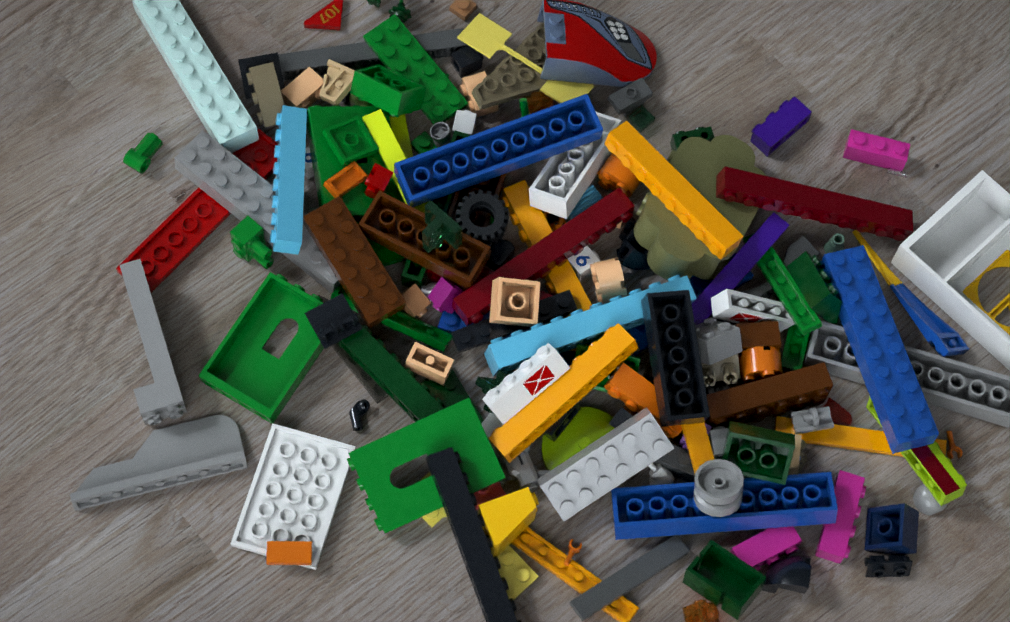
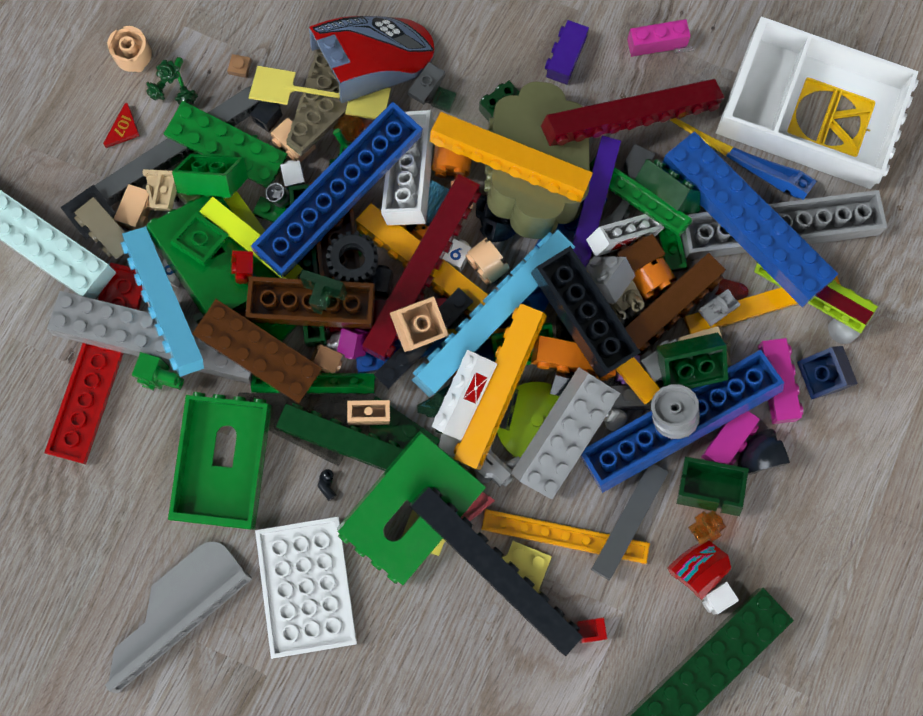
camera: 20 degrees left, 10 degrees up
(140, 157) = (16, 337): green piece -> none
(164, 396) = (147, 550): light grey brick -> none
(289, 553) = (327, 643): orange tile -> none
(333, 321) = (265, 415): black hinge -> none
(345, 180) = (213, 278): orange tile -> none
(508, 517) = (503, 521): yellow slope -> none
(572, 551) = (570, 522): orange hand -> none
(835, 243) = (663, 140): sand green cone -> none
(895, 566) = (846, 401): black hinge -> none
(953, 447) = (842, 274): orange hand -> none

